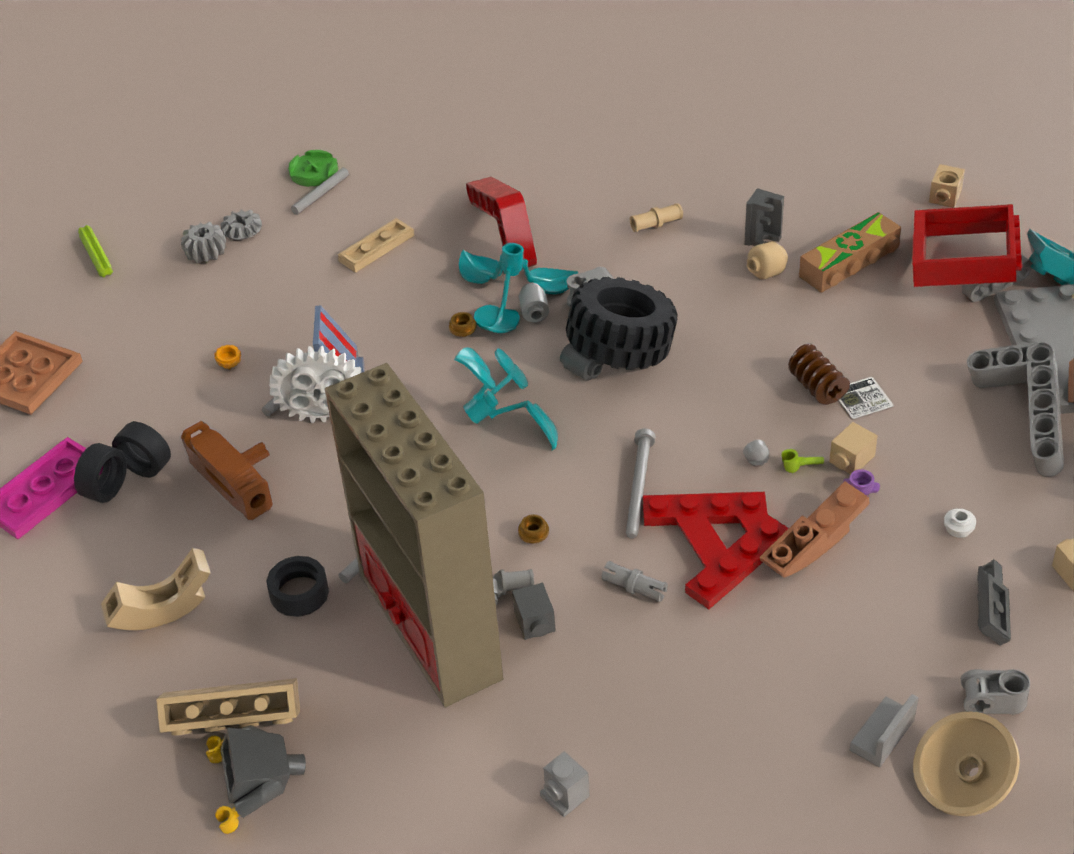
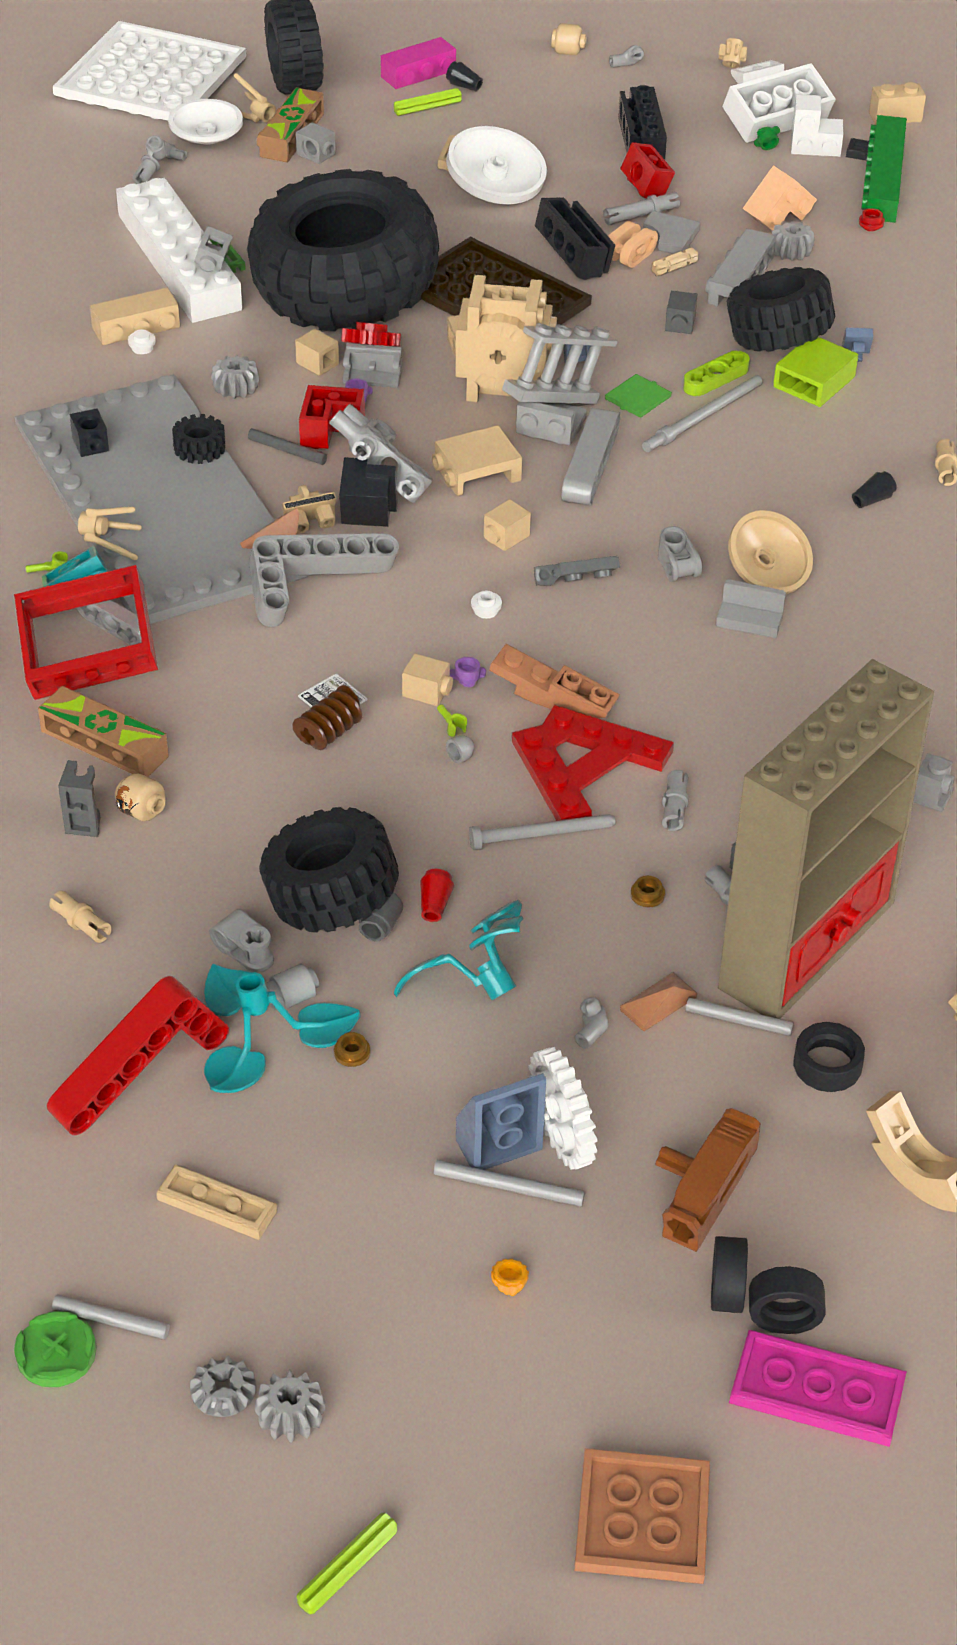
camera: 115 degrees left, 0 degrees up
(592, 398) = (435, 892): none -> red cone

